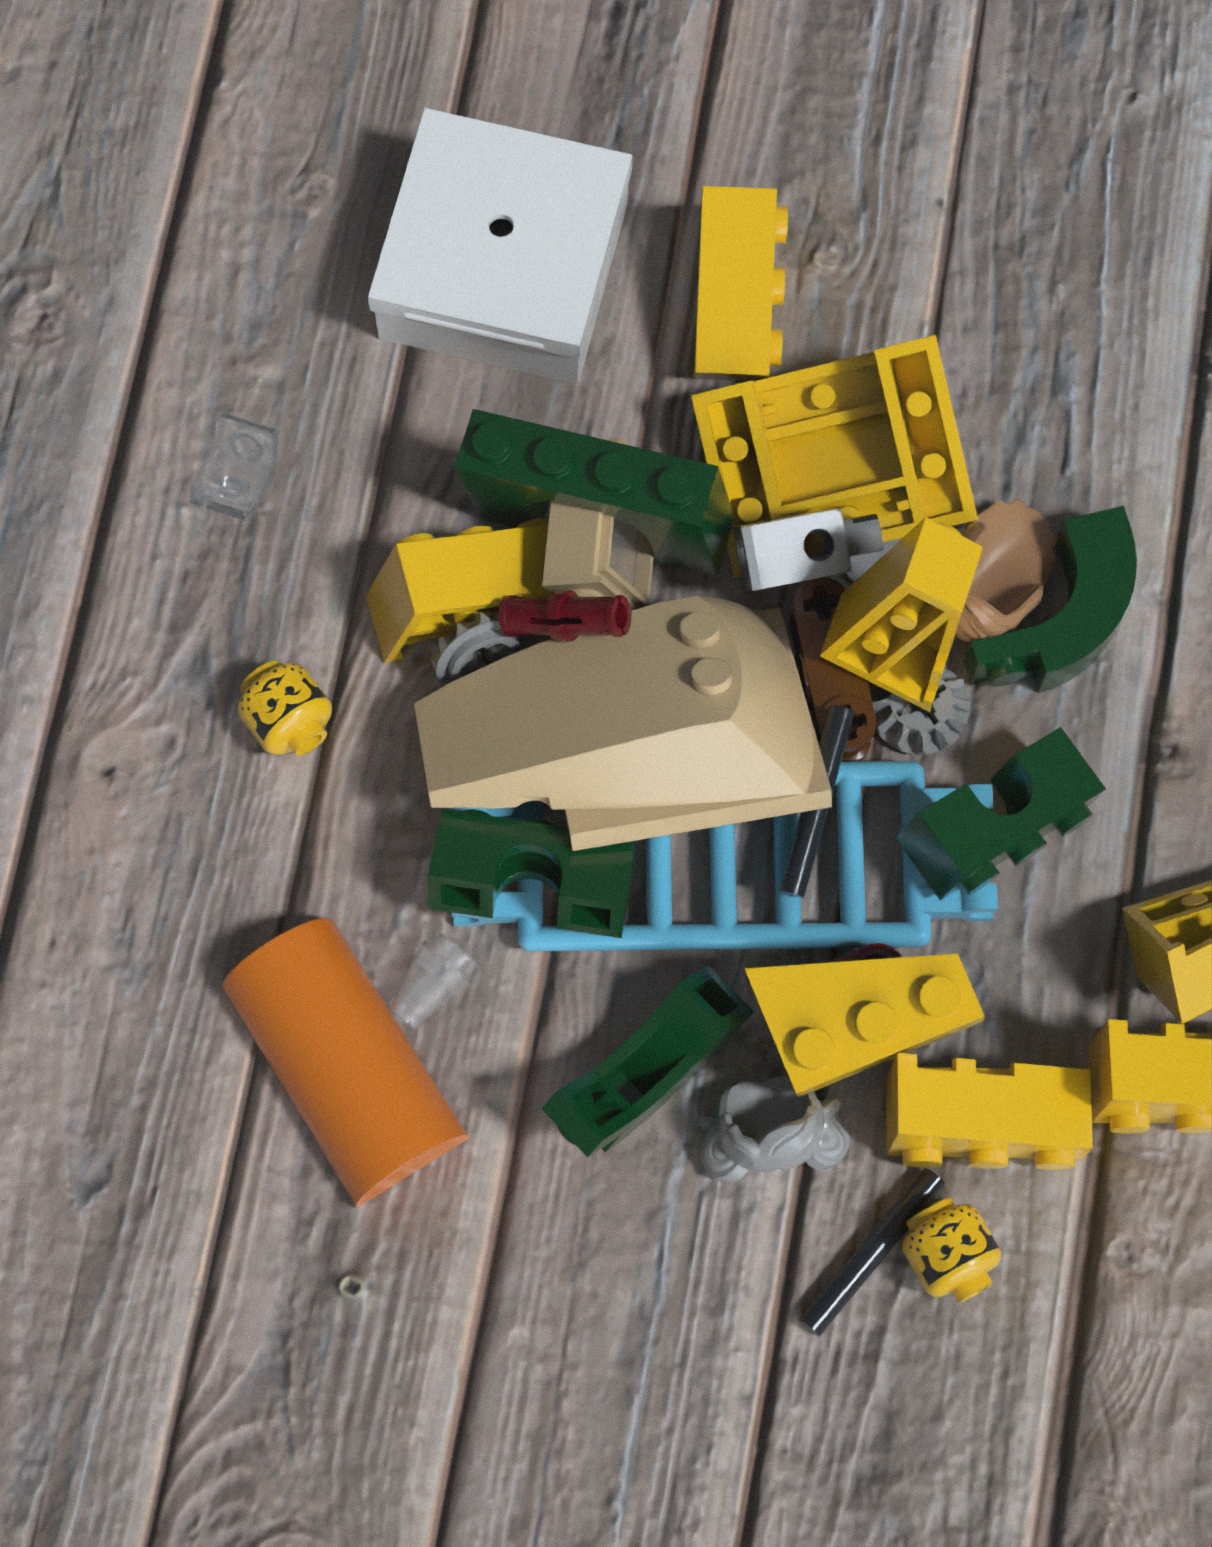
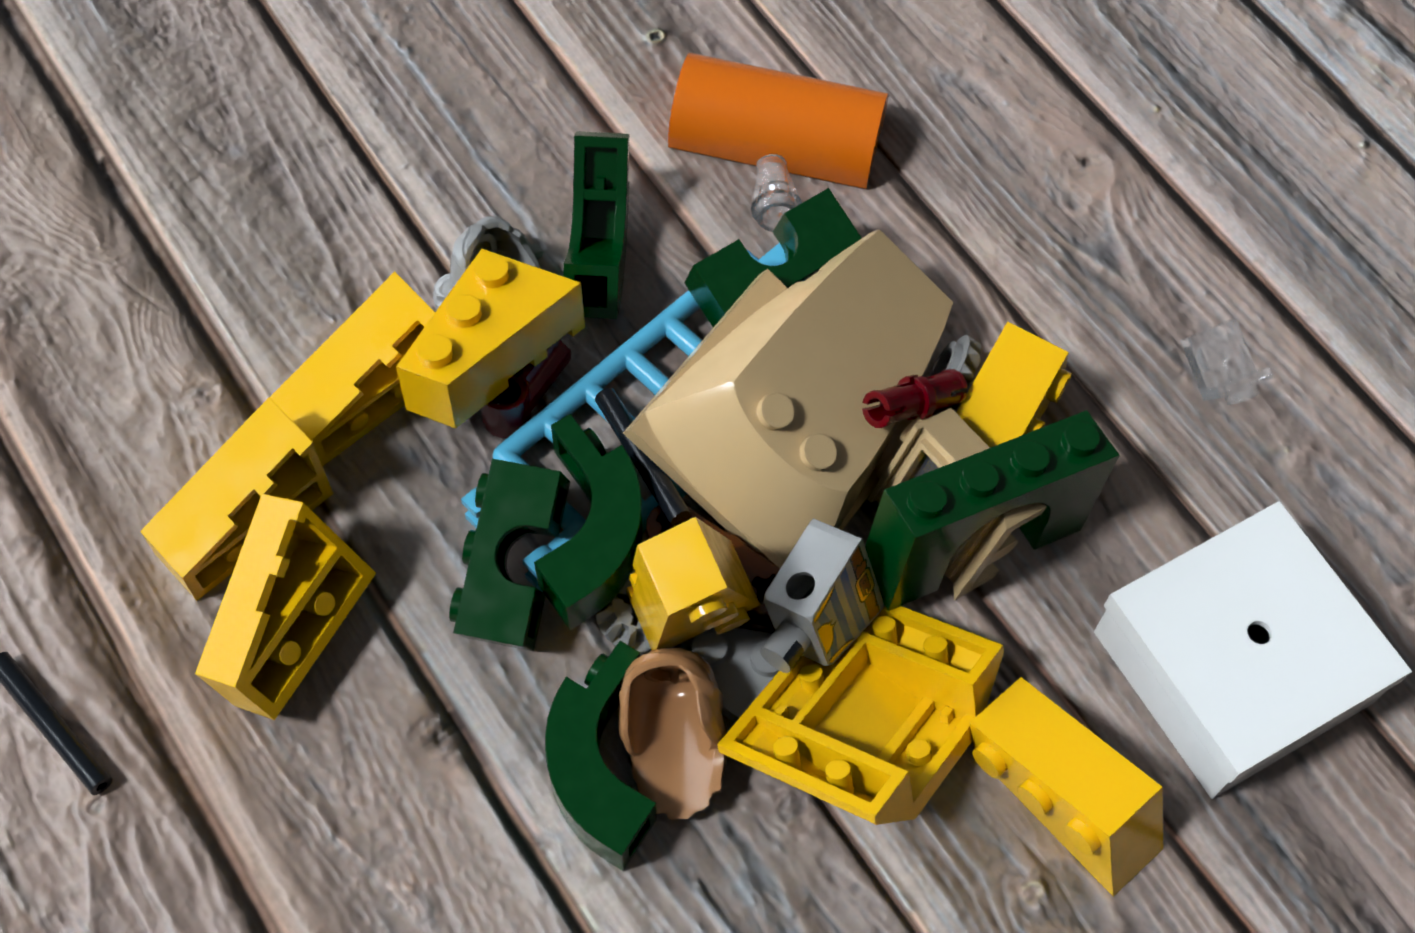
camera: 135 degrees right, 10 degrees down
(284, 708) = (1026, 253): yellow head -> none
(871, 1252) = (369, 248): black bar -> none
(923, 742) = (599, 559): none -> dark green arch
(951, 1250) = (316, 289): yellow head -> none

